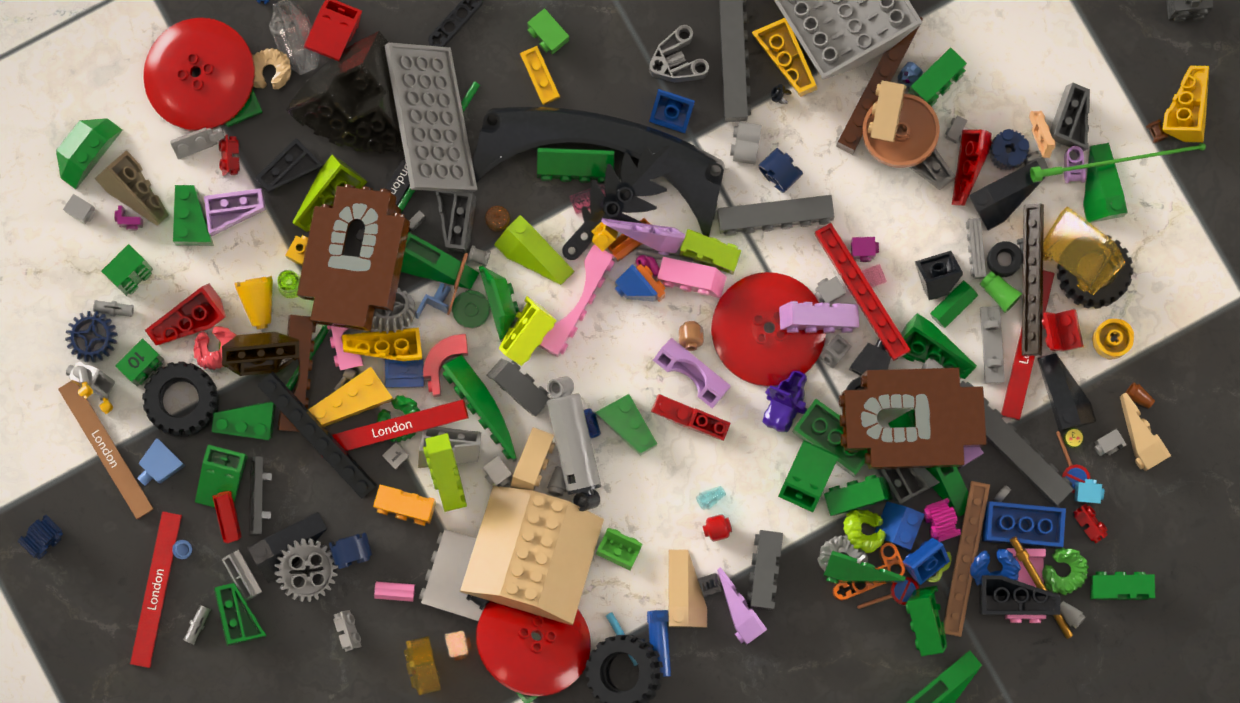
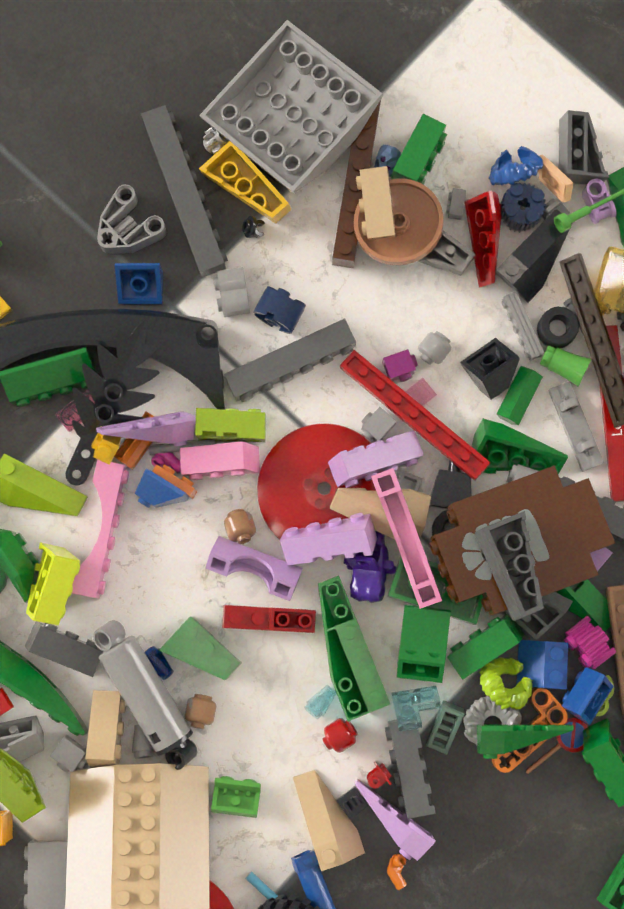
camera: 15 degrees left, 0 degrees up
(612, 472) = (200, 711): none -> medium nougat head
(726, 648) = (394, 870): none -> orange arm
(738, 568) = (378, 776): none -> red hinge
(745, 466) = (348, 655): none -> green wedge
(760, 369) = (329, 539): none -> lavender wedge
(771, 12) = (213, 140): none -> light grey gear
(781, 521) = (410, 702): none -> clear light blue plate
(815, 538) = (453, 709): none -> sand green slope
(816, 364) = (359, 500): none -> tan wedge
(822, 386) = (406, 538): none -> bright pink arch
(897, 242) = (434, 348): none -> light grey head
(897, 431) = (512, 565): none -> dark grey wedge
(1007, 119) = (506, 171): none -> blue piece

